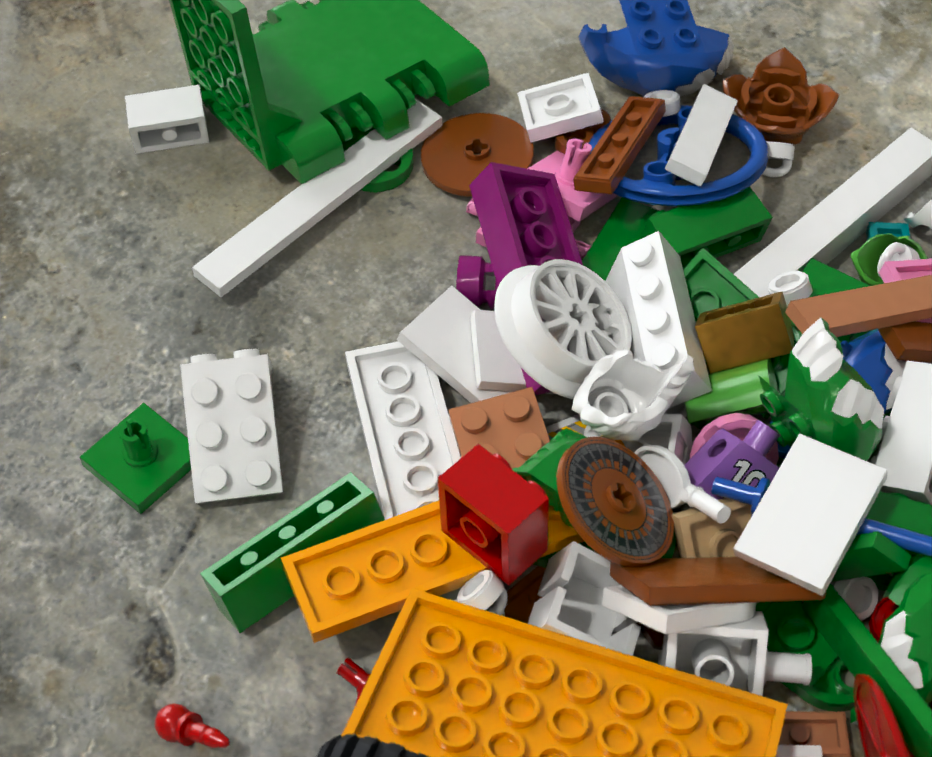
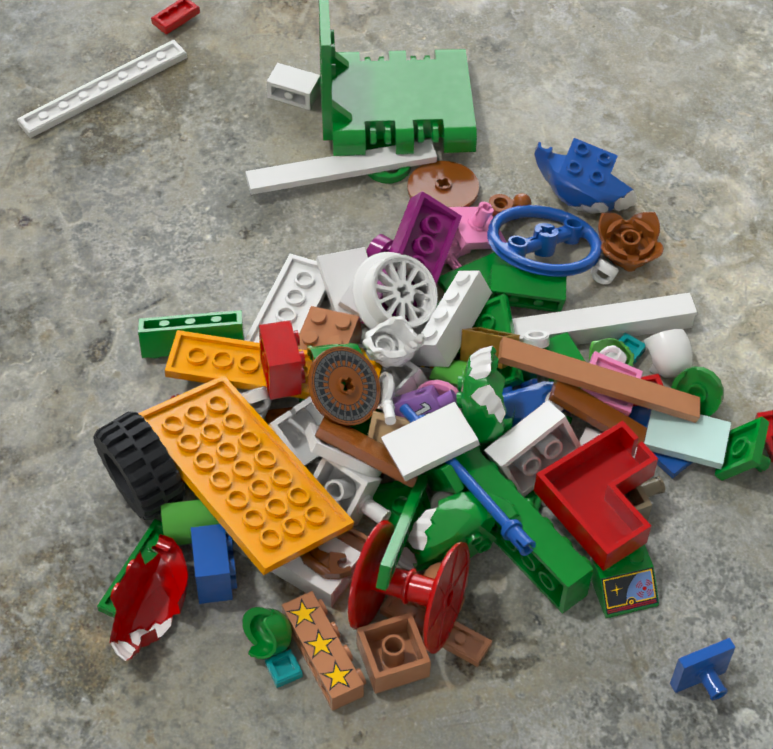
camera: 30 degrees right, 0 degrees up
(140, 458) = (157, 253): green tile -> none
(180, 725) = (88, 385): red bar -> none
(231, 426) = (206, 259): white bracket -> none
(560, 107) = (505, 183): white tile -> none
(619, 145) = (512, 218): dark orange tile -> none
(671, 98) = (563, 209): white tile -> none
(701, 135) = (558, 234): white tile -> none

